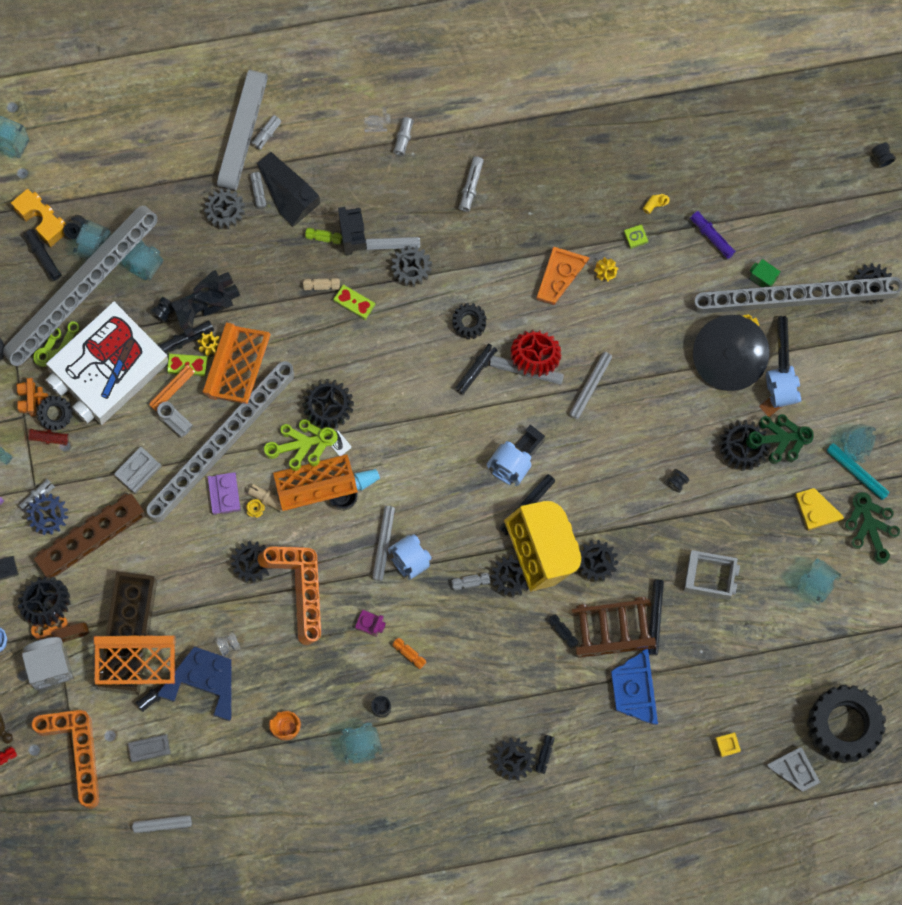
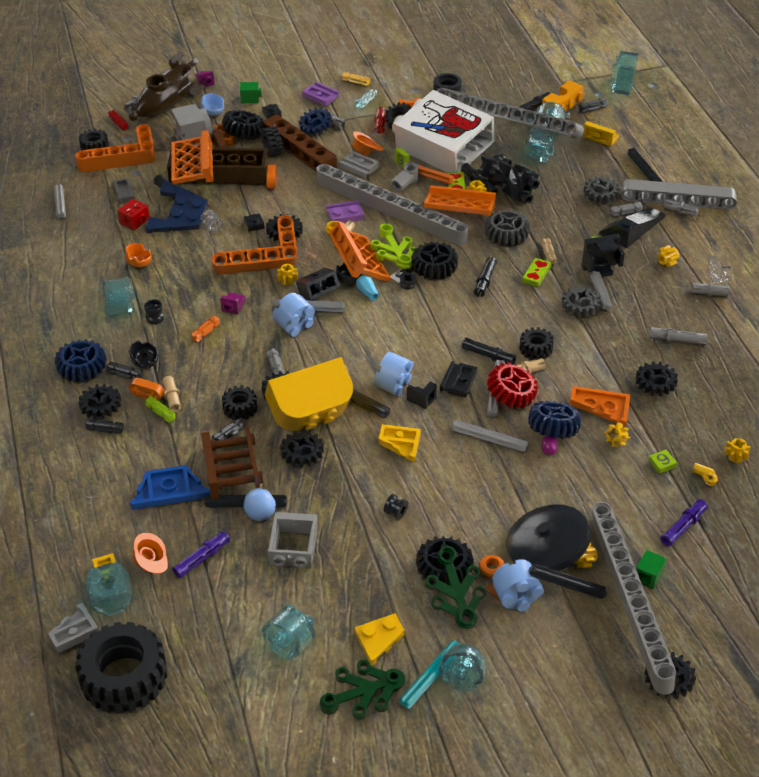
camera: 85 degrees right, 30 degrees down
(38, 779) = (93, 140): none -> black tyre
(51, 185) = (592, 105): none -> black axle
(88, 567) = (272, 141): none -> black tyre
(106, 457) = (364, 144): none -> orange piece
(112, 188) = (600, 134): none -> yellow panel
(134, 418) = (401, 157): none -> lime tile
(159, 572) = (271, 176): none -> orange beam
(185, 153) = (643, 165): none -> black axle
(205, 733) = (133, 214): none -> red head
(230, 596) = (254, 222): none -> black plate
(287, 317) = (507, 227): none -> dark grey gear
(336, 567) = (287, 274): none -> yellow gear
(350, 165) = (668, 256): none -> yellow gear
(354, 443) = (407, 280): none -> black bush
(358, 355) = (483, 280): none -> black pin
(366, 535) = (317, 283): none -> black brick
(443, 788) = (80, 360): none -> dark blue gear
(451, 715) = (143, 354): none -> black hair
(466, 736) = (124, 370): none -> black axle
(500, 712) = (145, 388): none -> orange beam
(503, 335) = (533, 366): none -> tan pin
(507, 687) = (171, 393): none -> tan pin
(513, 403) = (459, 379): none -> black plate
(526, 699) = (160, 409): none -> lime axle
(531, 608) = (239, 395): none -> black tyre
(532, 209) = (656, 378): none -> black gear
(583, 331) = (554, 419): none -> dark blue gear
(592, 467) = (400, 440): none -> yellow wing
(608, 332) = (549, 445): none -> magenta cylinder
(628, 170) = (737, 450): none -> yellow gear
(667, 603) = (259, 504): none -> light blue hair
(719, 659) = (208, 549): none -> dark purple pin
(724, 702) = (150, 553): none -> orange piece
(748, 398) = (490, 560): none -> orange piece
(764, 729) = (109, 588): none -> clear light blue brick

